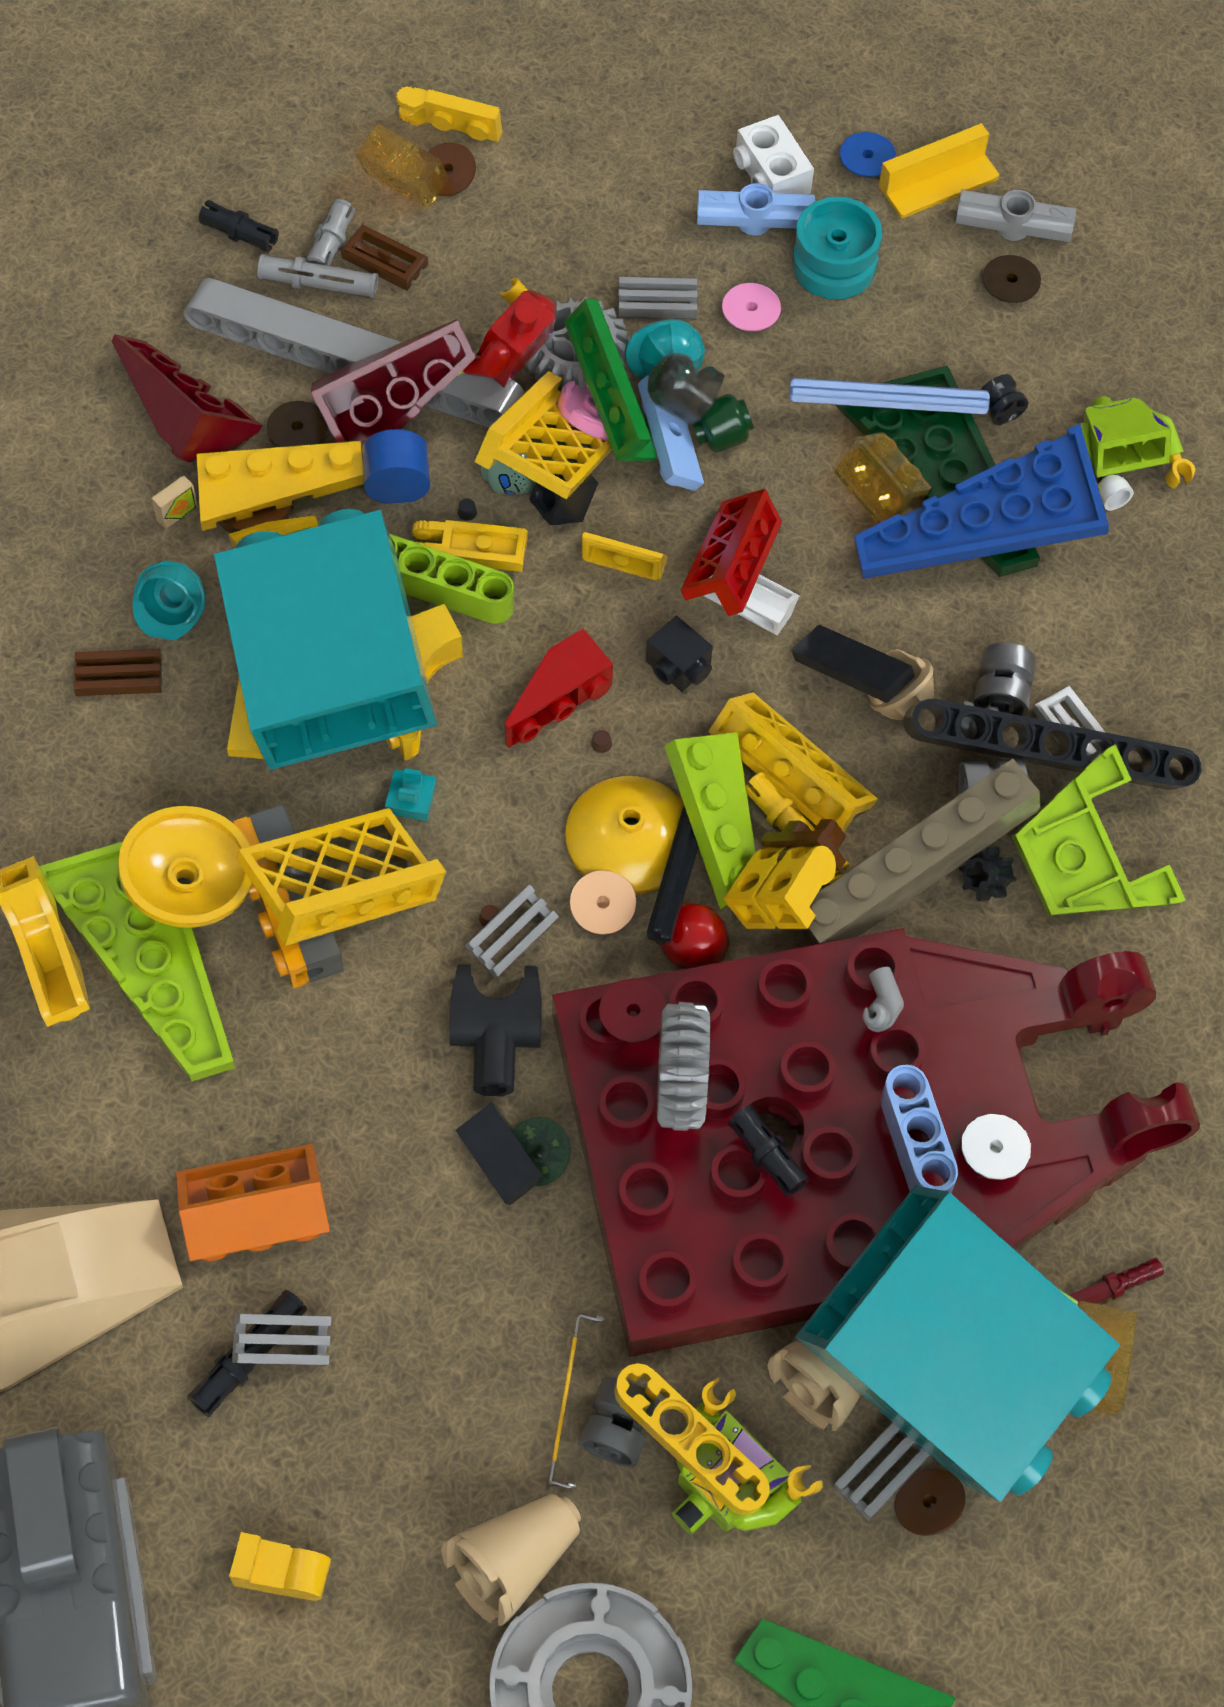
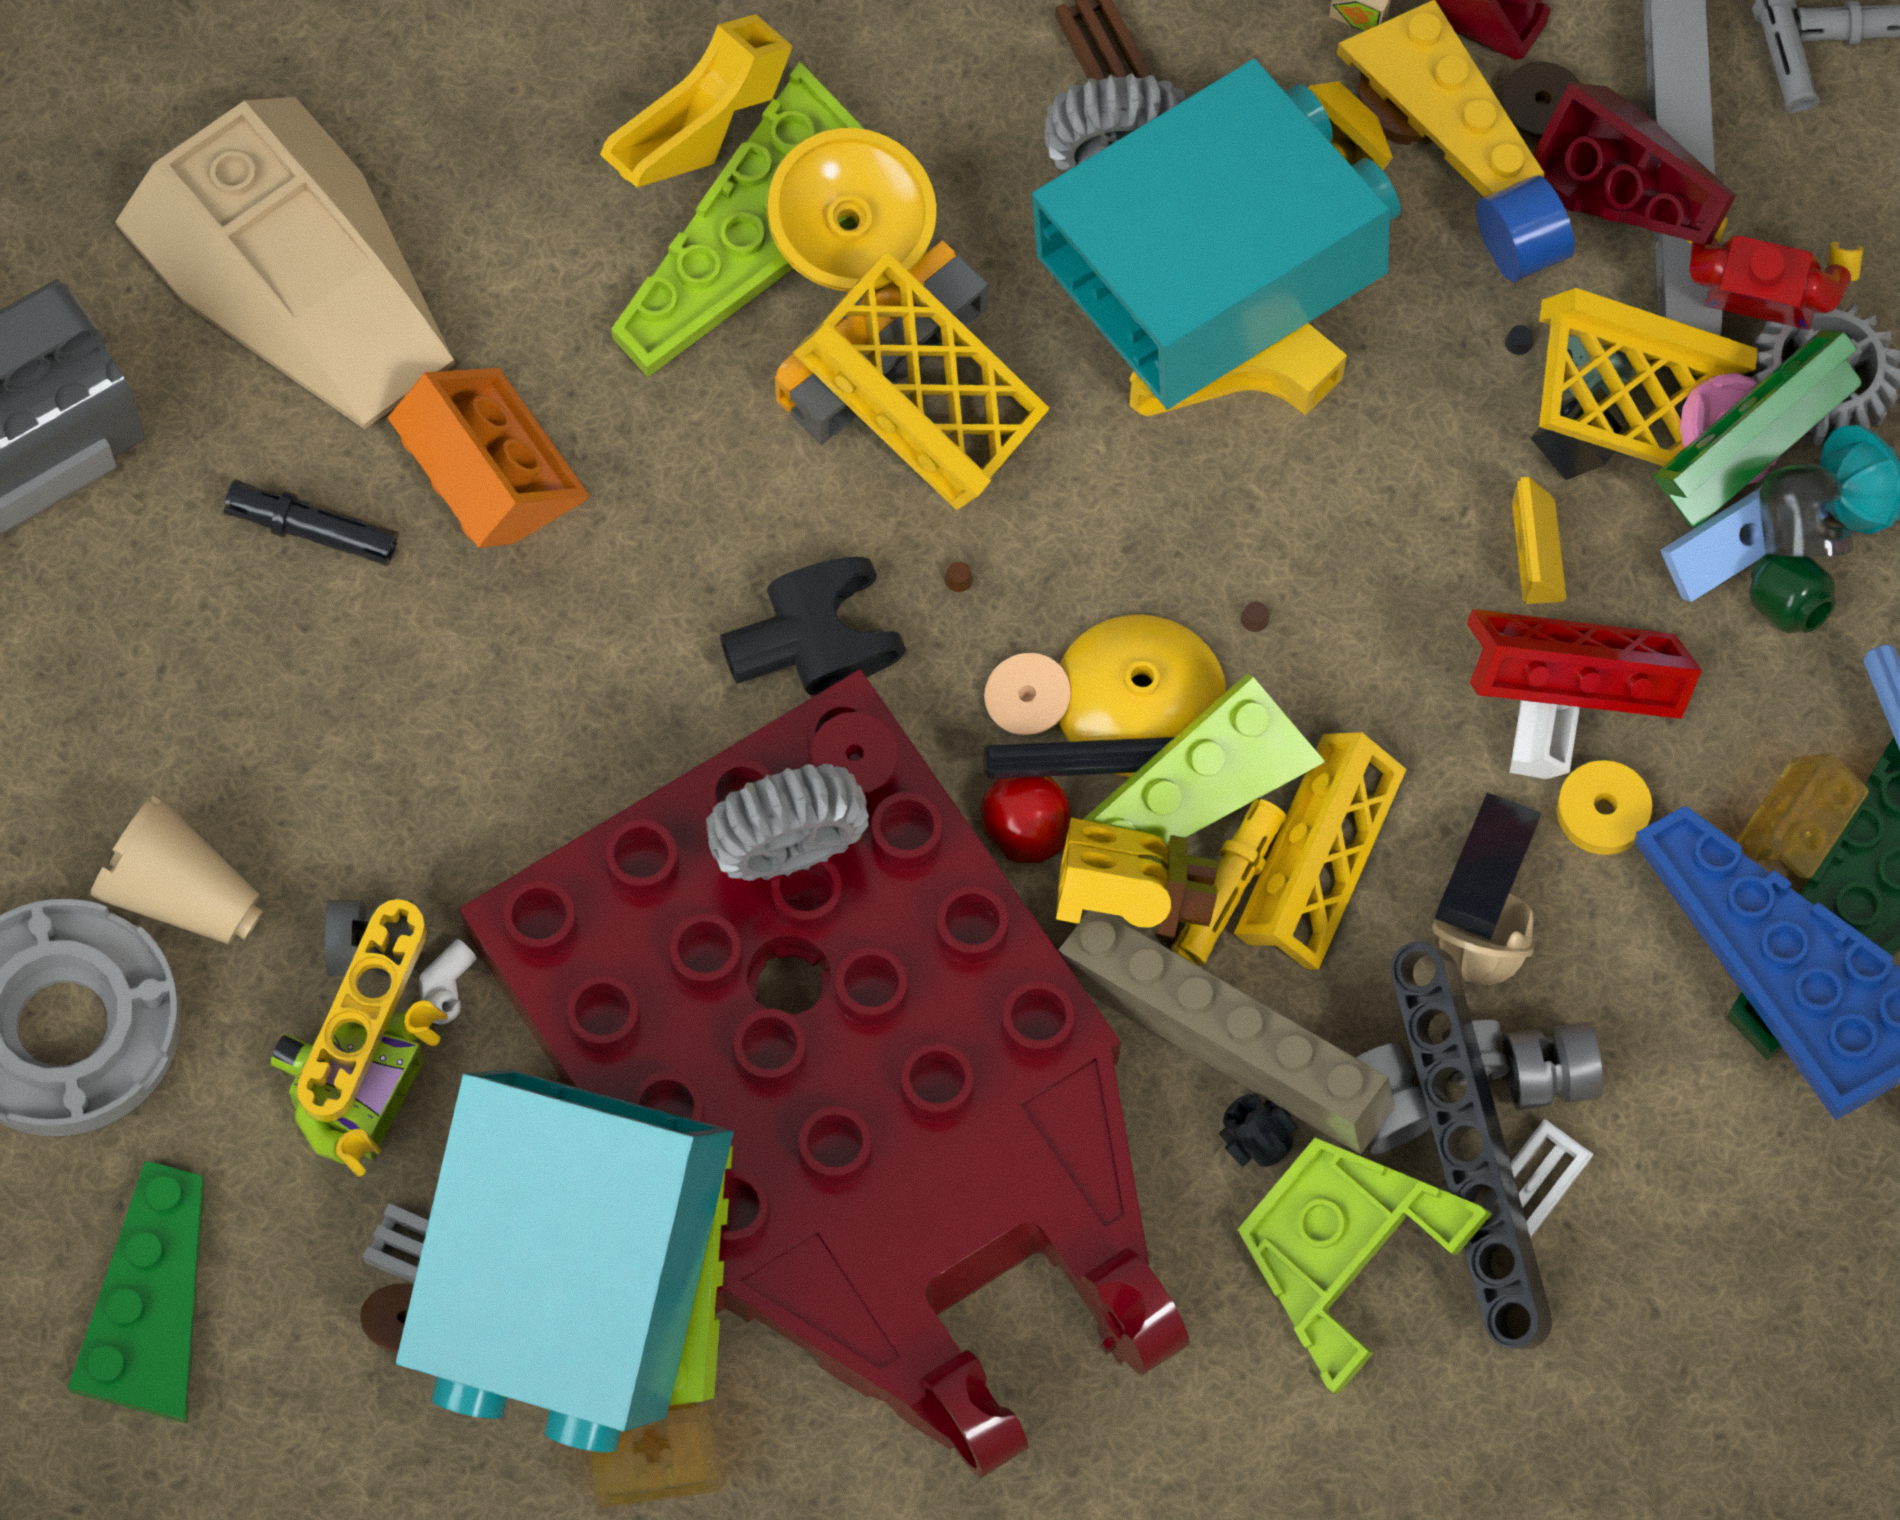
camera: 70 degrees right, 5 degrees up
(168, 600) = (1215, 47): teal piece -> none
(200, 677) = (1103, 113): none -> light grey gear
(278, 1568) = (80, 646): yellow leg -> none
(319, 1340) = (313, 556): light grey tile -> none
(381, 261) = (1851, 138): reddish brown tile -> none
(411, 794) = (1081, 427): teal tile -> none
(445, 569) = (1396, 338): lime beam -> none
(481, 543) = (1464, 364): yellow hinge -> none
(500, 1153) = (652, 697): black tile -> none
(537, 907) = (898, 588): light grey tile -> none
(547, 1145) = (671, 737): clear green piece -> none
(563, 680) = (1307, 533): red slope -> none
(564, 1399) = (387, 879): yellow piece -> none
(679, 655) = (1411, 658): black brick -> none
(688, 1387) = (439, 979): none -> white arm
(768, 1151) = (734, 966): black pin -> none
(832, 573) = (1610, 783): none -> yellow piece
(888, 1003) = (982, 1041): light grey arm -> none
(920, 1114) = (827, 1101): light blue beam -> none
(996, 1146) = (856, 1235): white piece -> none
(1115, 1284) = (761, 1455): dark red piece -> none

